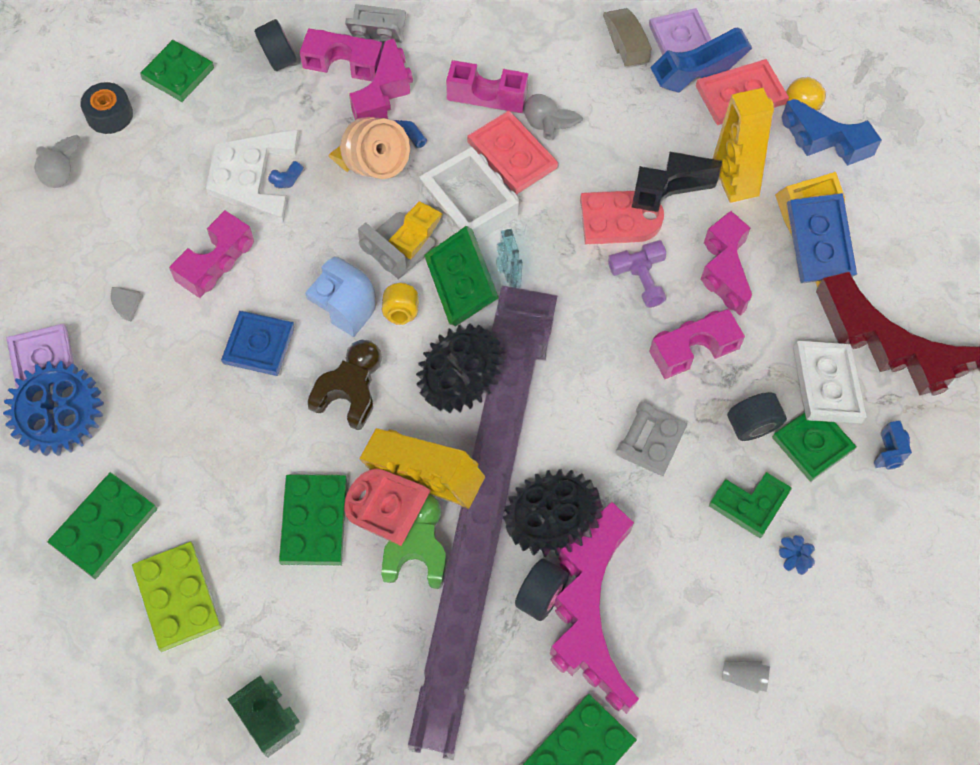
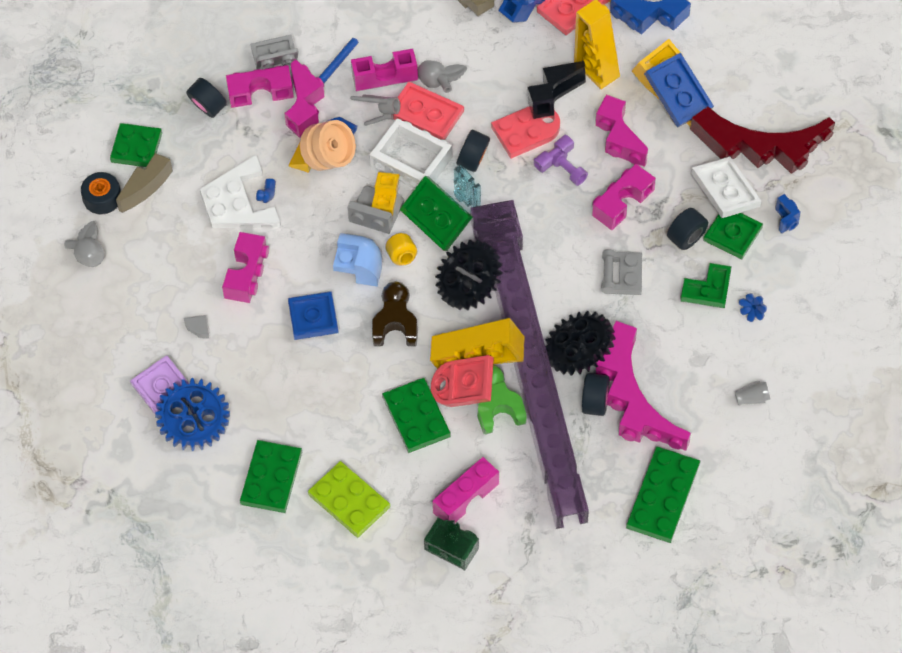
camera: 20 degrees left, 5 degrees down
(158, 114) = (144, 182): none -> dark tan slope
(298, 657) = (476, 481): none -> dark pink arch
(444, 59) = (338, 59): none -> blue bar
(467, 127) = (386, 105): none -> light grey plant
(541, 217) = (473, 150): none -> black wheel

